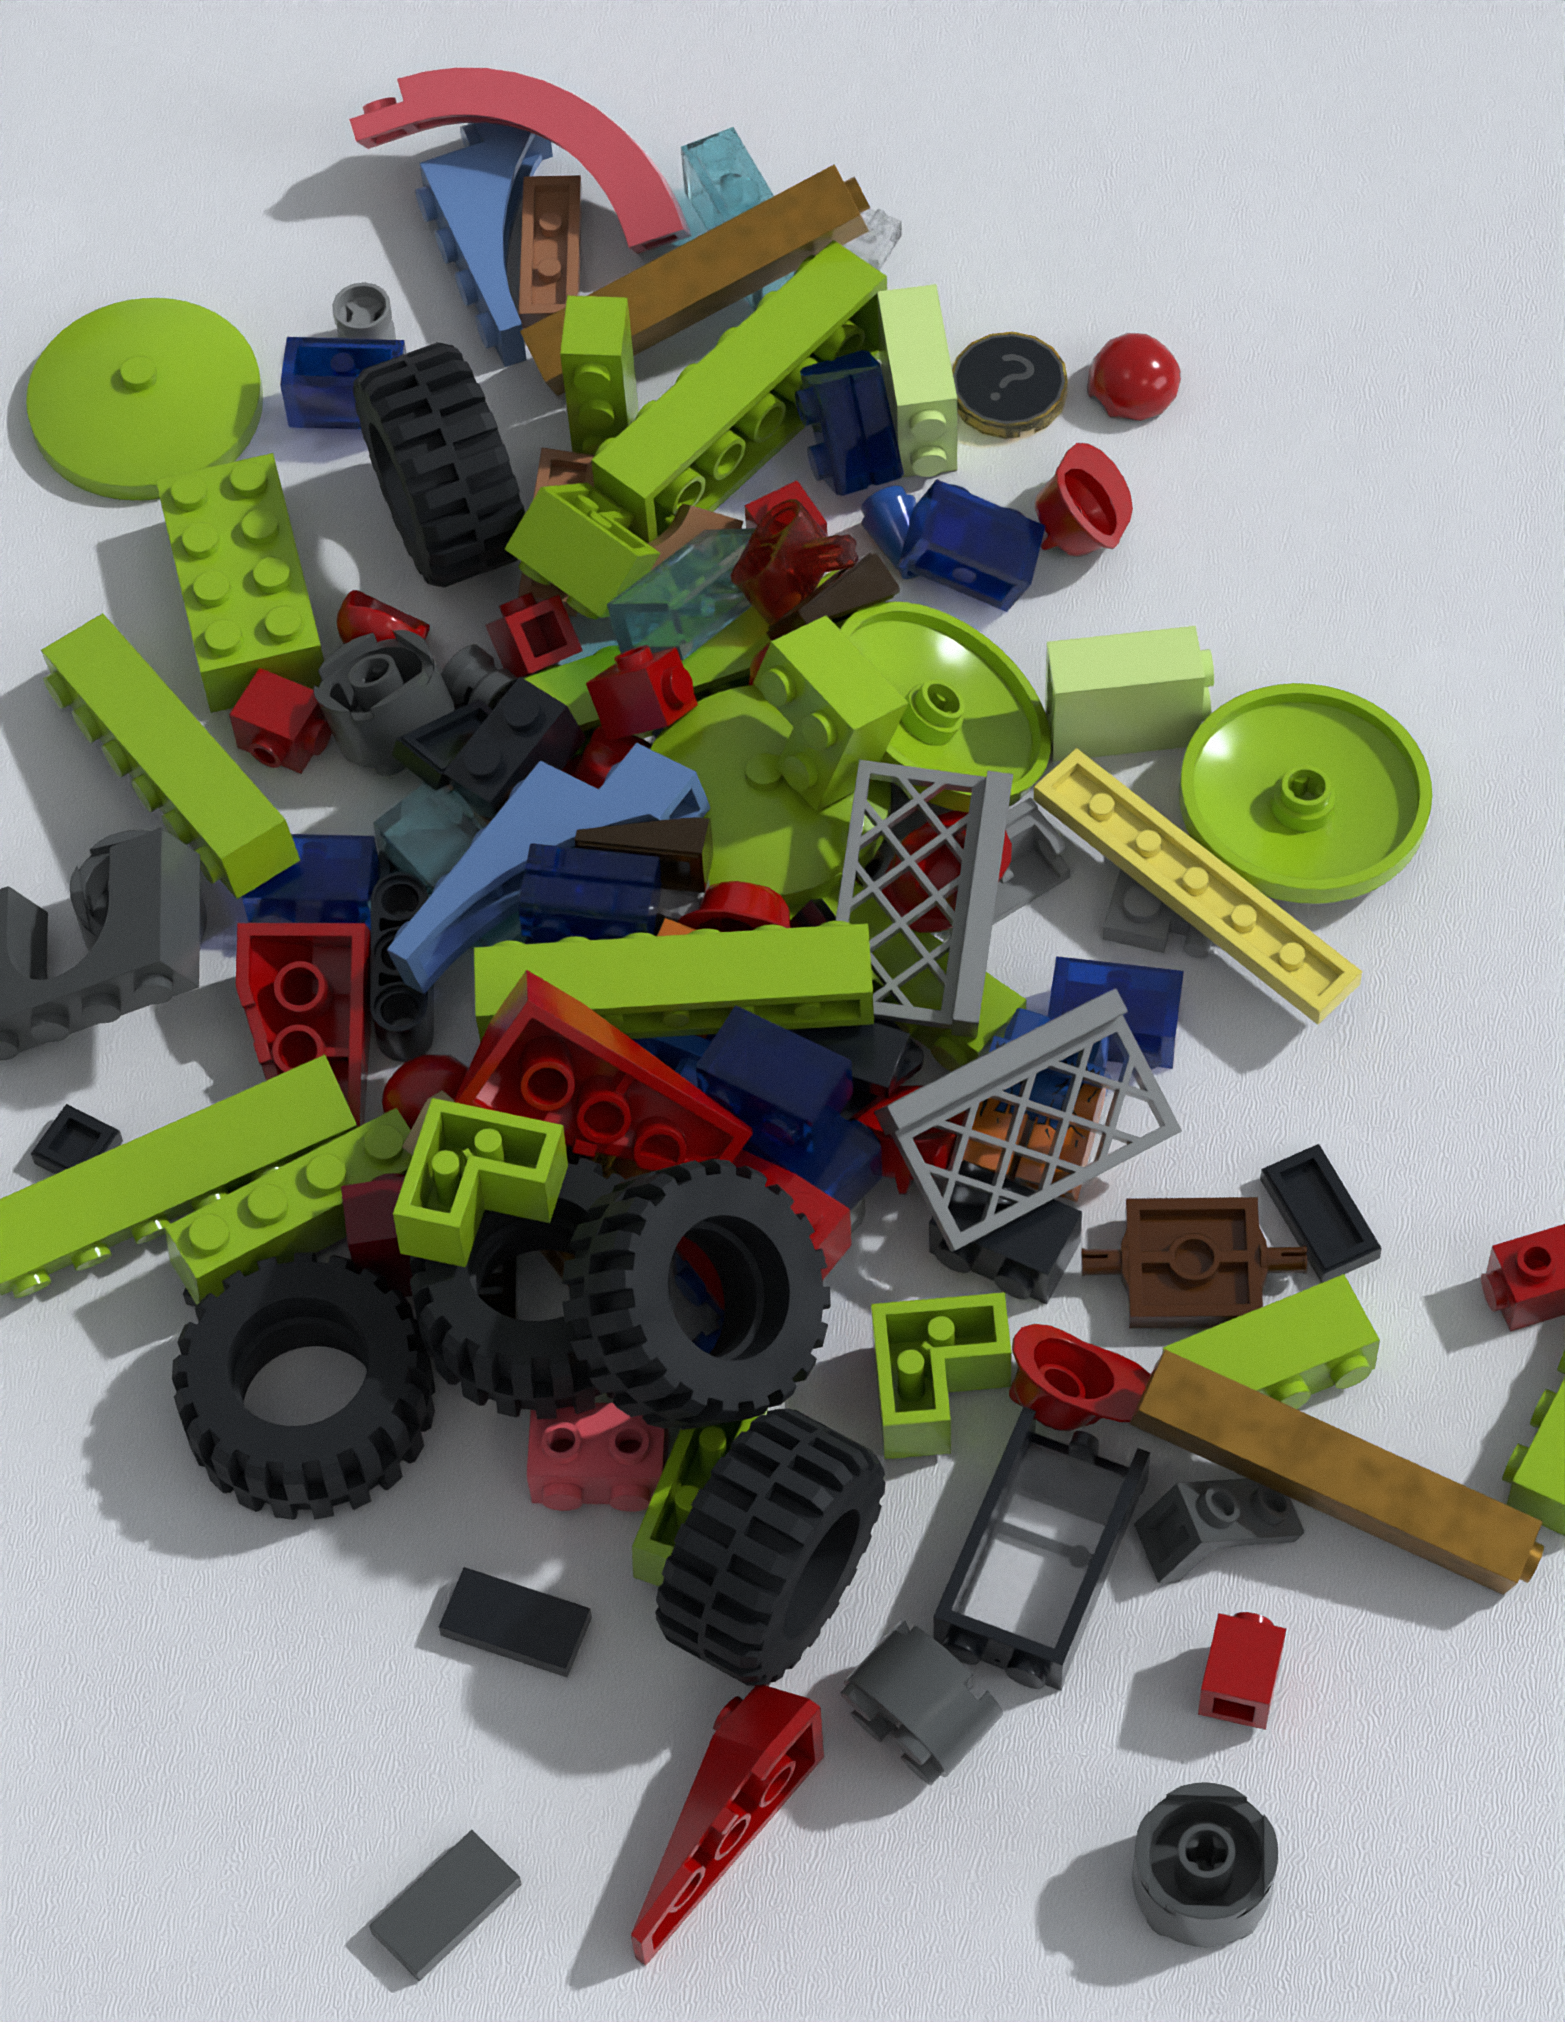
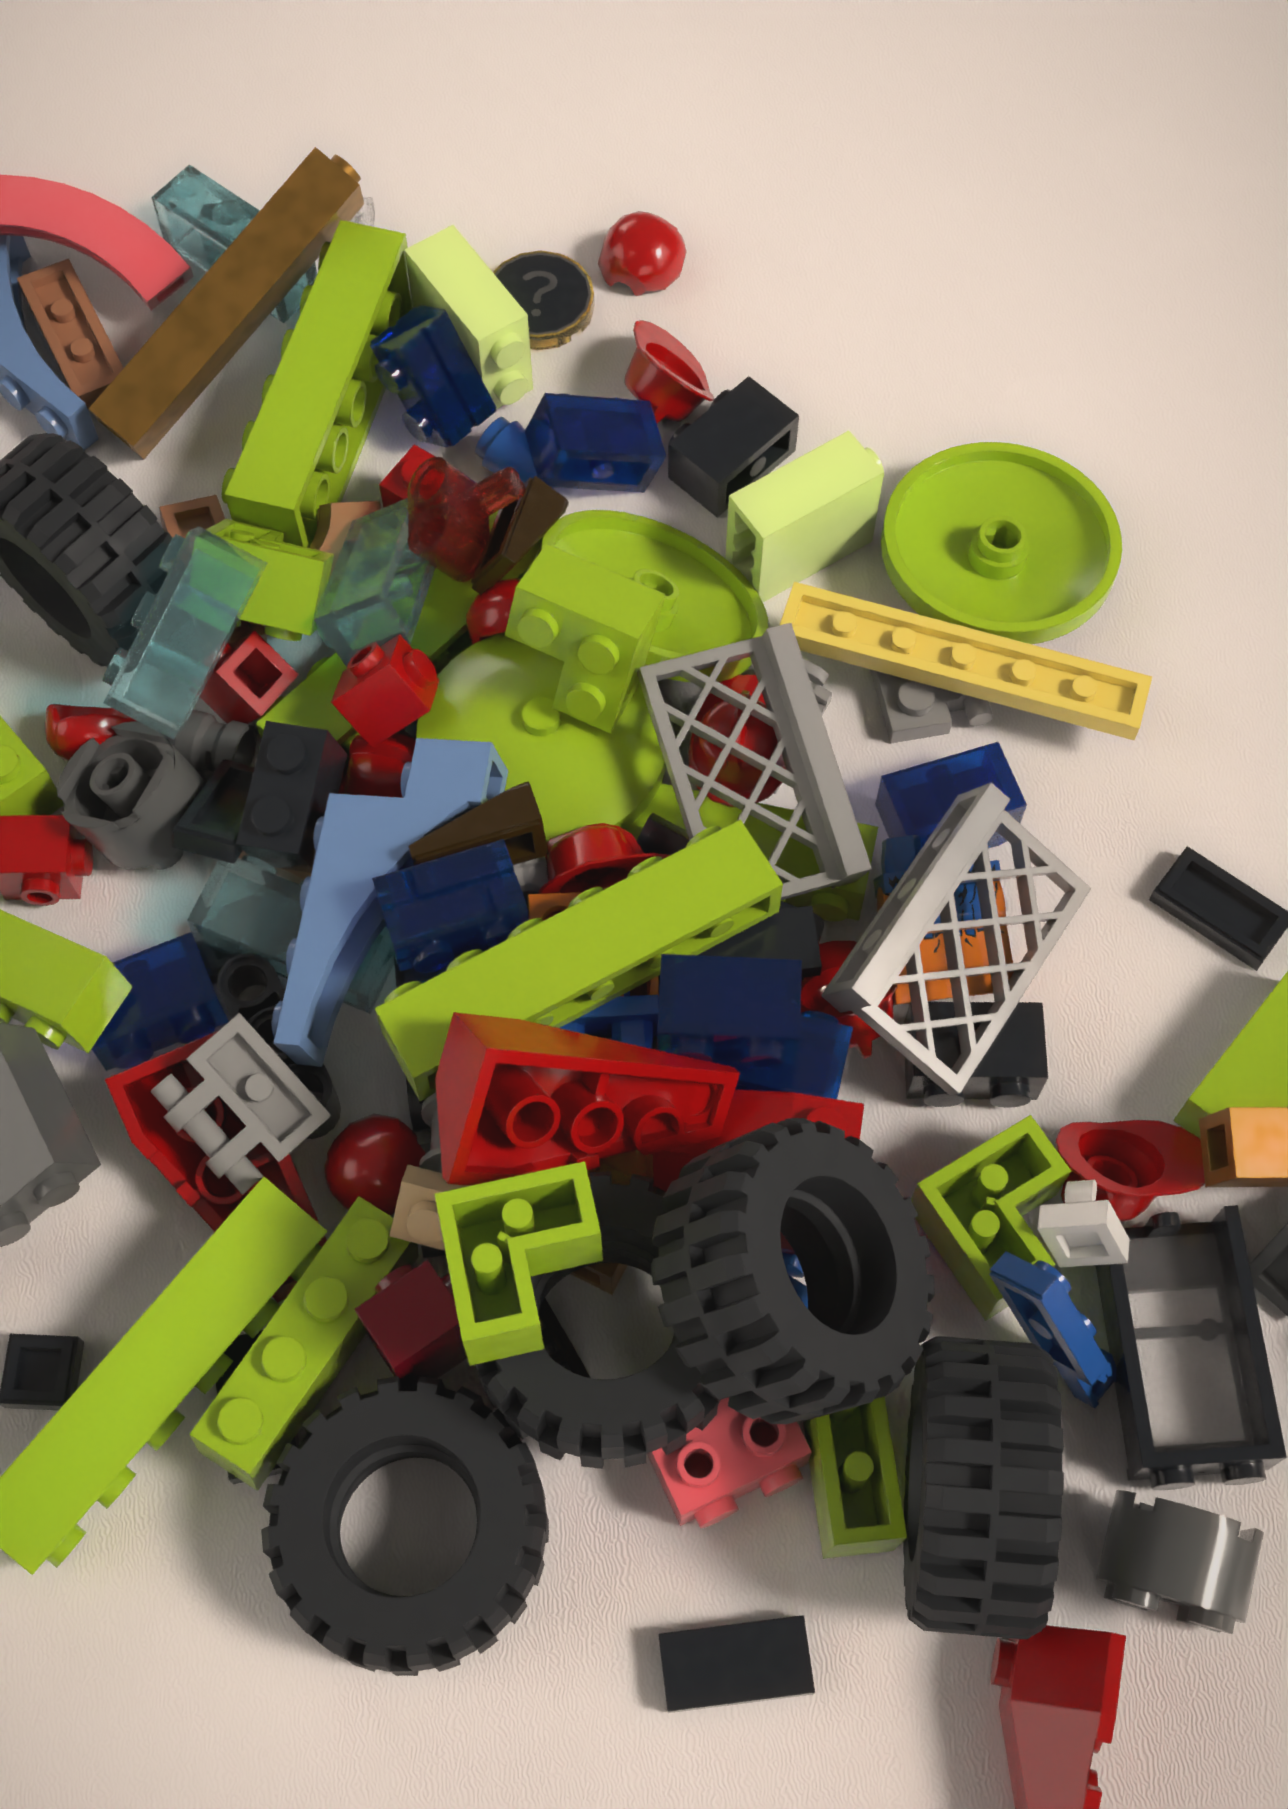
camera: 30 degrees left, 5 degrees up
(357, 985) = (256, 1088): none -> light grey plate
(487, 568) = (182, 630): none -> clear light blue brick
(597, 370) = (186, 413): lime brick -> none
(925, 1478) = (1051, 1321): none -> blue hinge
(992, 1404) = (1083, 1229): none -> white tile
(1109, 593) = (732, 444): none -> black brick
(1192, 1261) = (1149, 1003): reddish brown plate -> none

